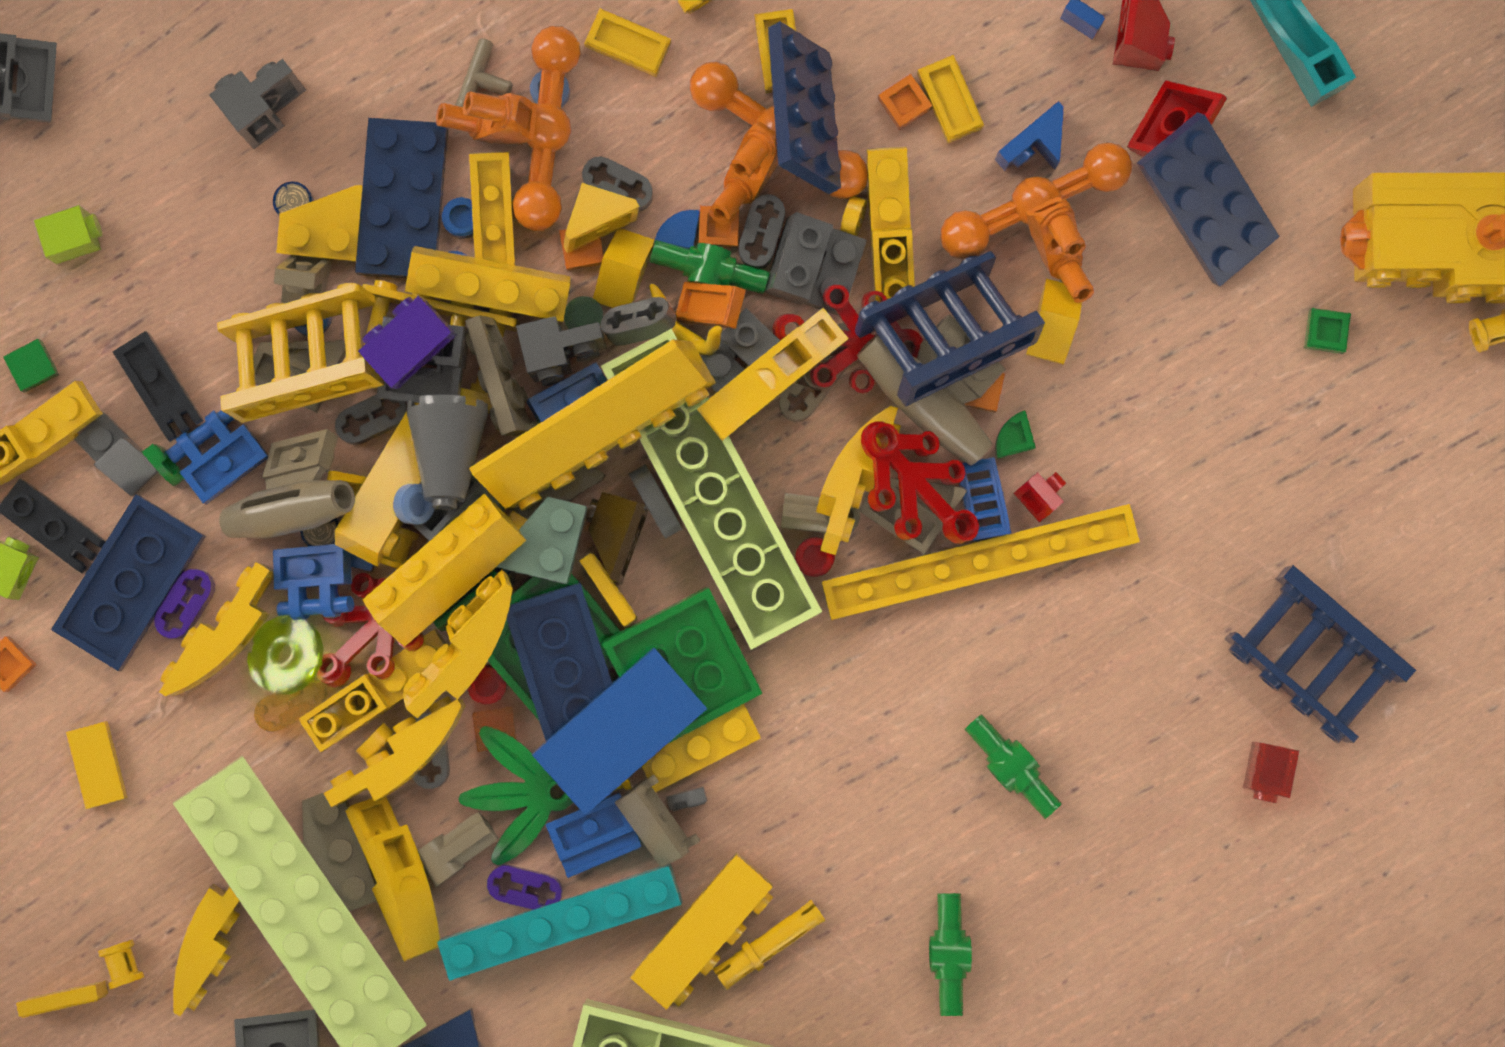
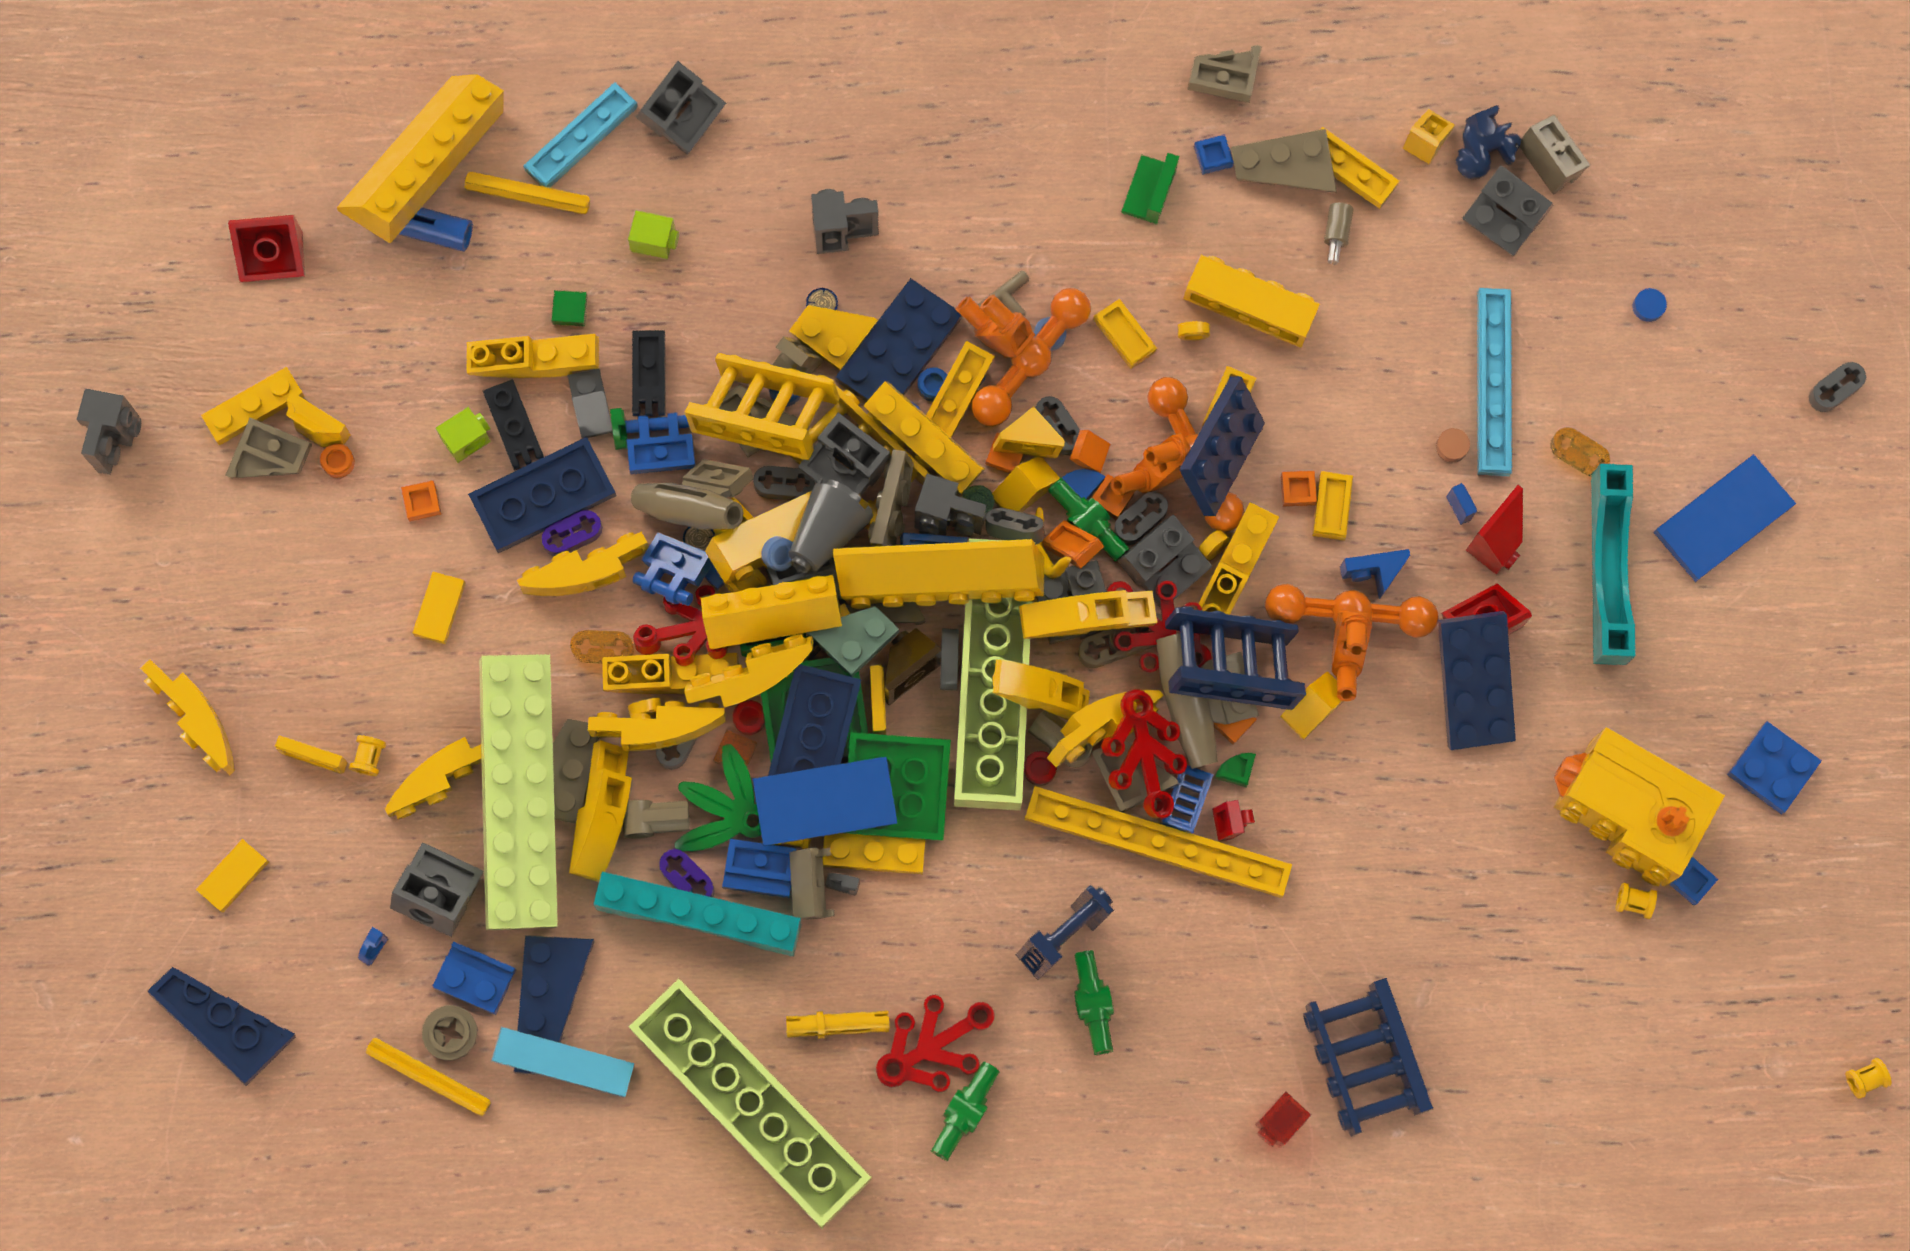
camera: 25 degrees right, 10 degrees down
(299, 668) = (624, 623): clear neon green tile -> none
(406, 341) = (844, 437): dark purple brick -> none
(667, 192) = (1090, 451): none -> orange tile
(702, 931) = (795, 984): yellow brick -> none
(771, 484) = (1039, 688): none -> yellow slope
(876, 910) = (930, 1047): none -> red plant
(940, 748) = (1041, 950): none -> dark blue fence
(1327, 330) = (1512, 829): green tile -> none

